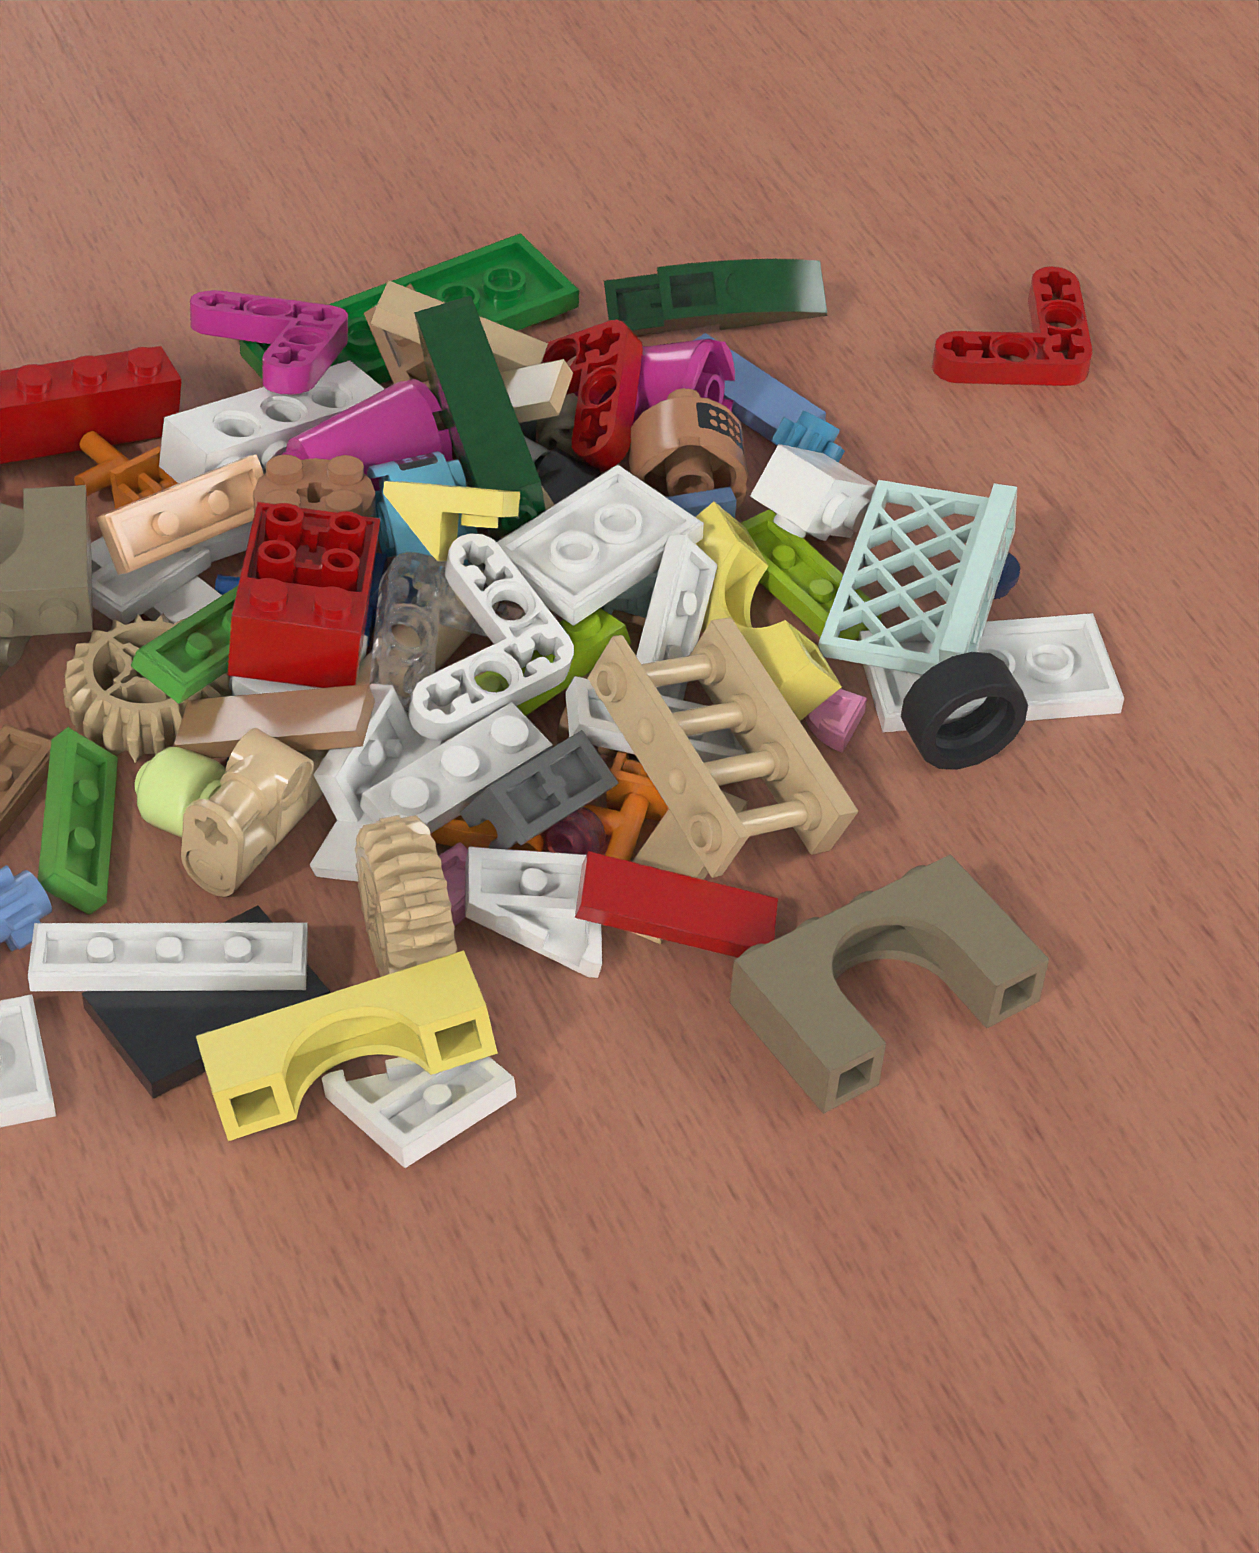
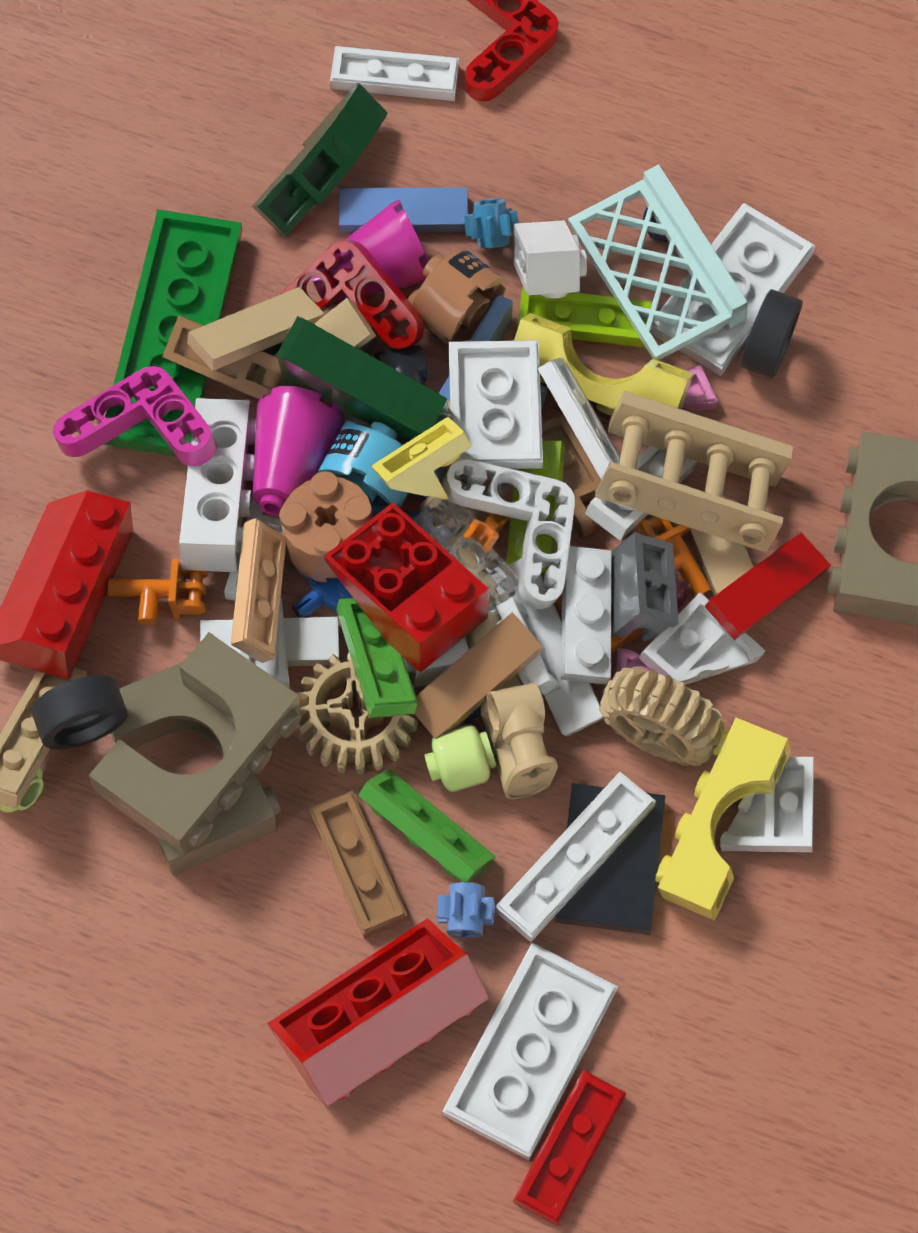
camera: 45 degrees left, 20 degrees up
(435, 615) = (486, 532): none -> orange piece
(882, 301) = (395, 73): none -> white tile

